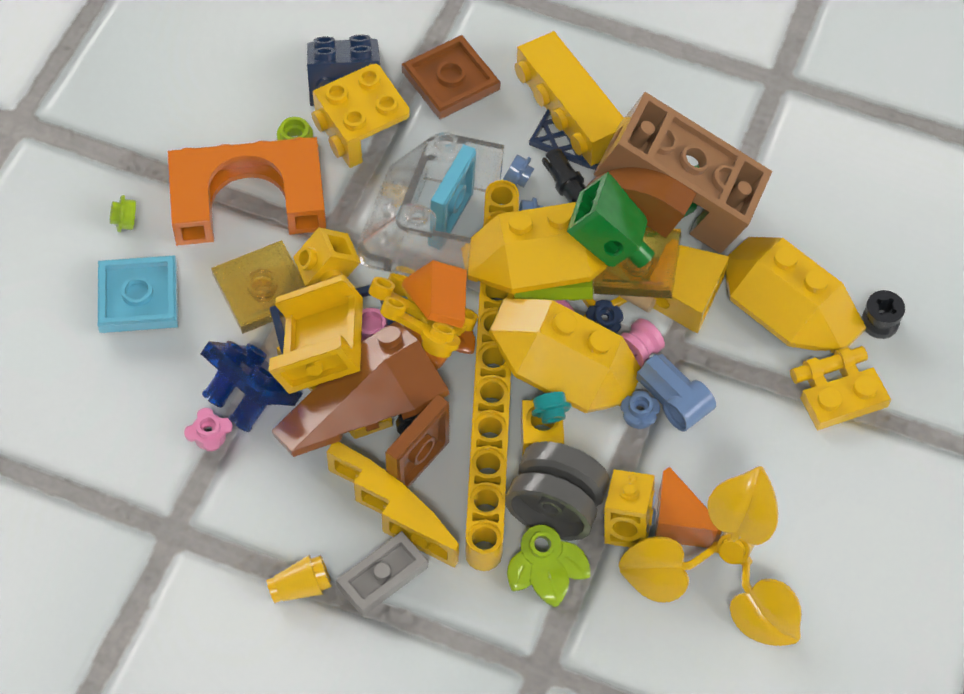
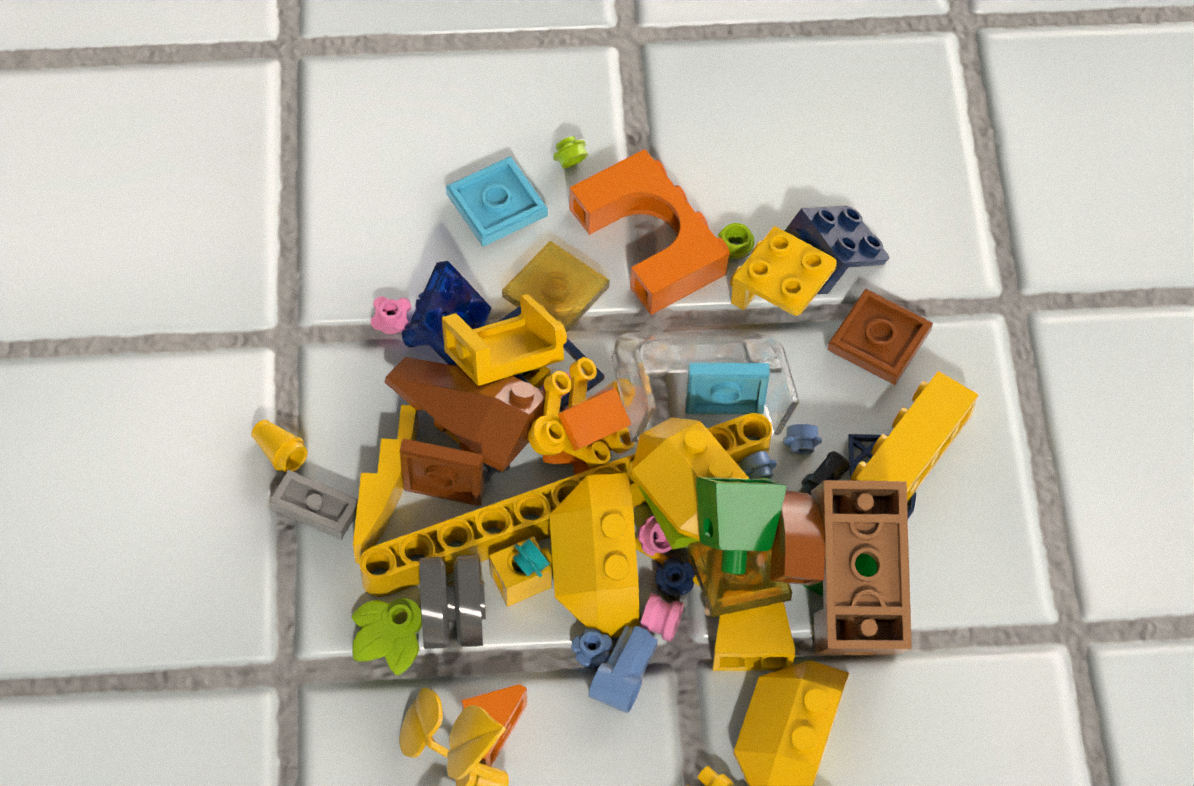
camera: 65 degrees right, 0 degrees up
(326, 256) = (602, 320): yellow brick -> none
(629, 508) = (466, 669): yellow head -> none

